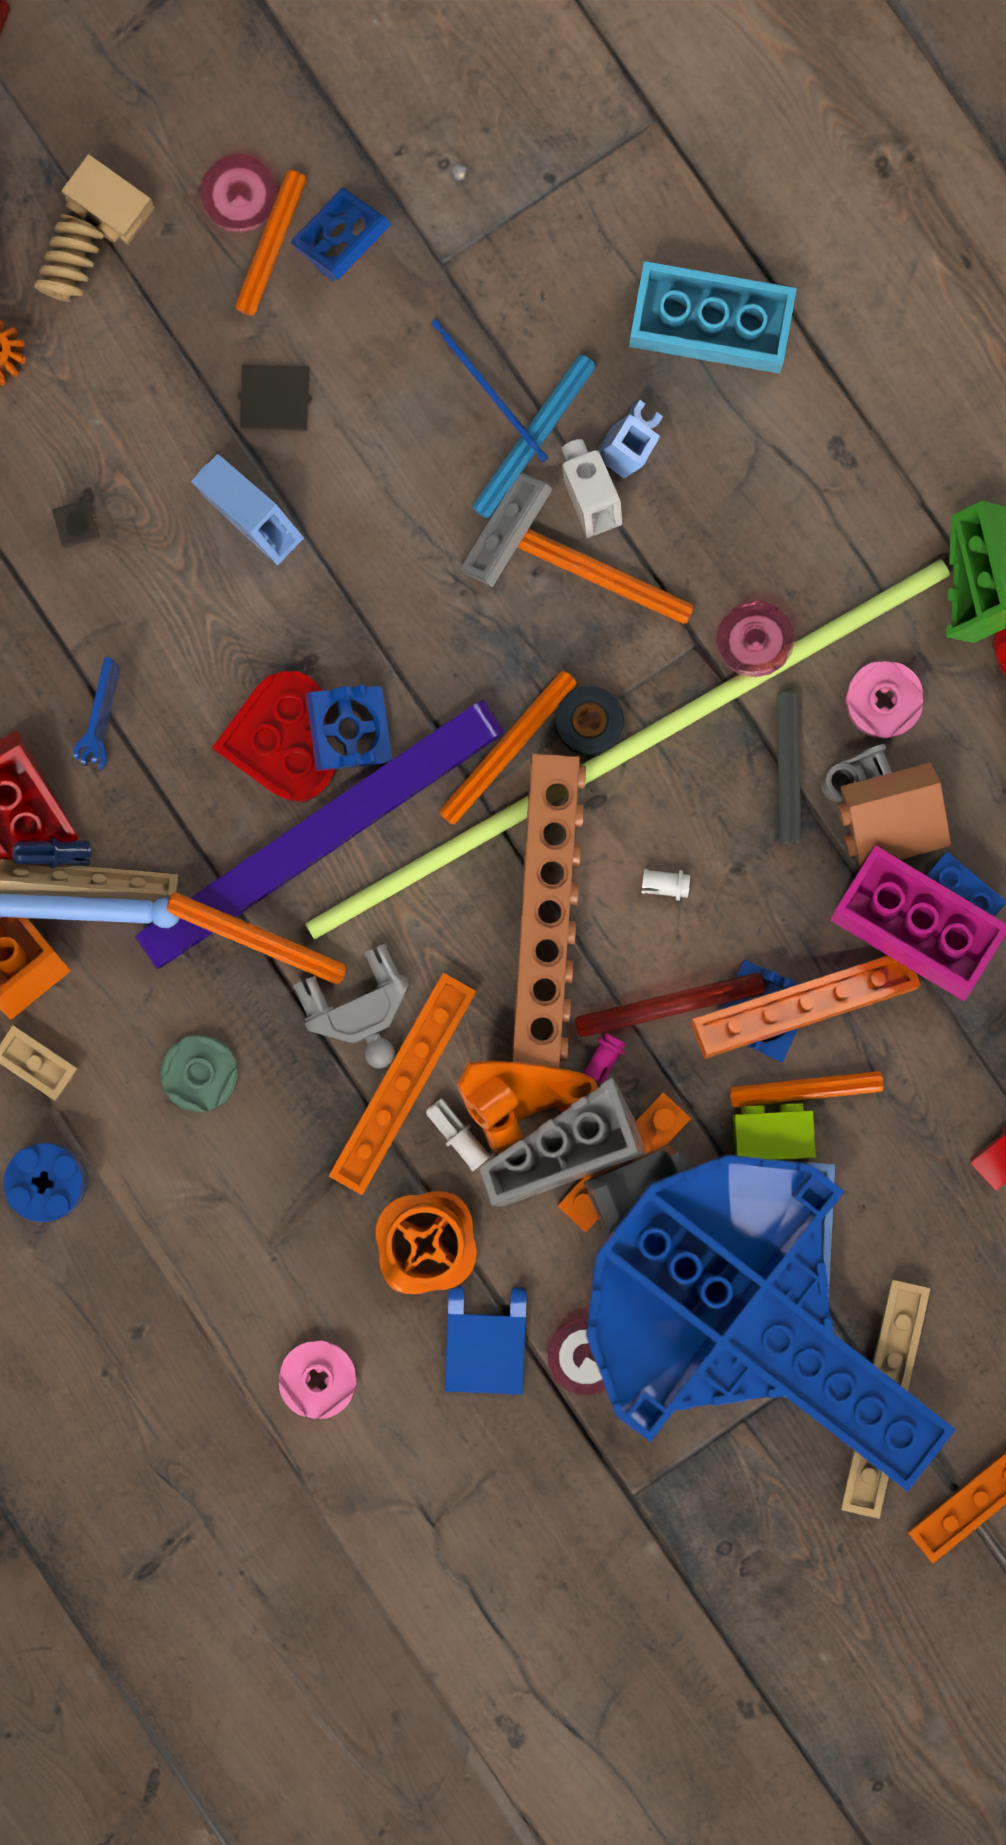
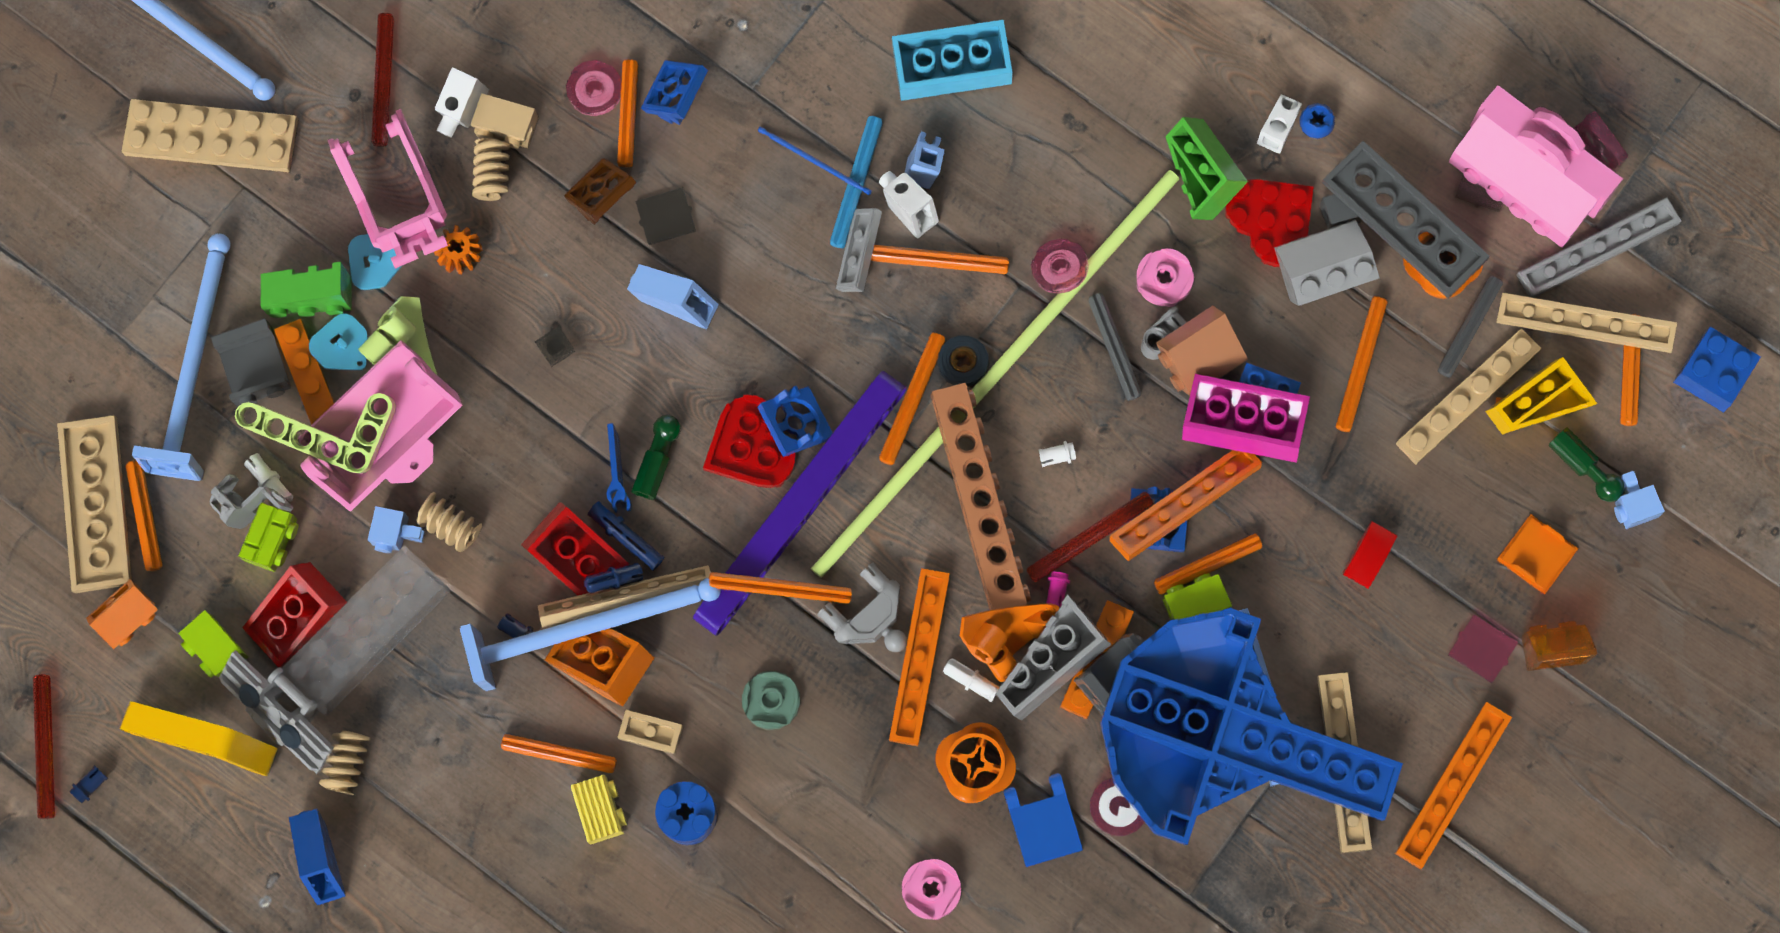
camera: 15 degrees left, 10 degrees down
(63, 142) = (459, 92): none -> white torso
(85, 800) = (601, 513): none -> dark blue pin
(155, 716) = (654, 463): none -> dark green piece
(195, 317) = (604, 173): none -> reddish brown piece

